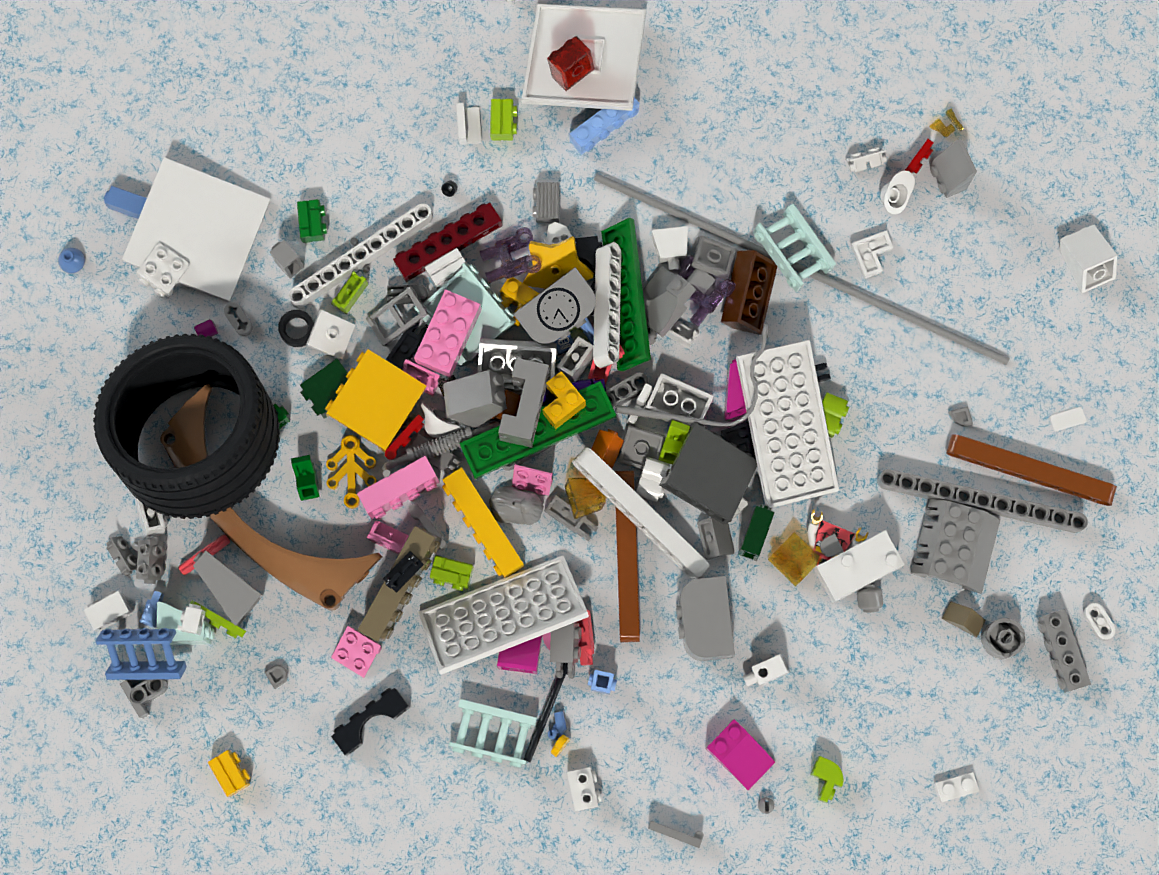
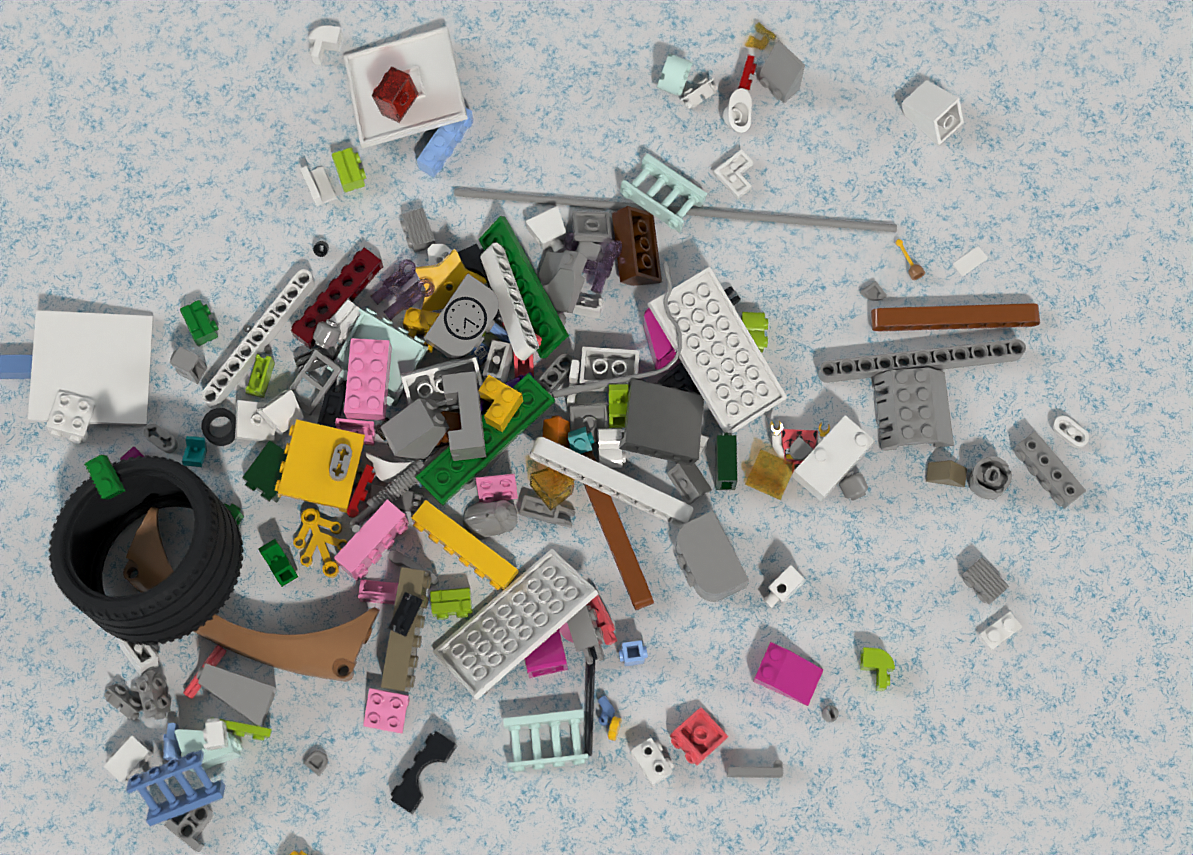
camera: 20 degrees left, 5 degrees down
(170, 346) = (104, 477): none -> green brick
(264, 344) = (195, 451): none -> teal bracket
(358, 335) = (281, 411): none -> white torso
(398, 407) = (336, 460): none -> light grey beam
(425, 275) = (326, 334): none -> light grey head
(626, 462) = (580, 440): none -> teal brick
(634, 782) = (698, 736): none -> coral plate
(848, 134) = (674, 74): none -> light aqua brick
(960, 735) = (984, 581): none -> light grey brick
(1010, 410) = (915, 270): none -> medium nougat hinge

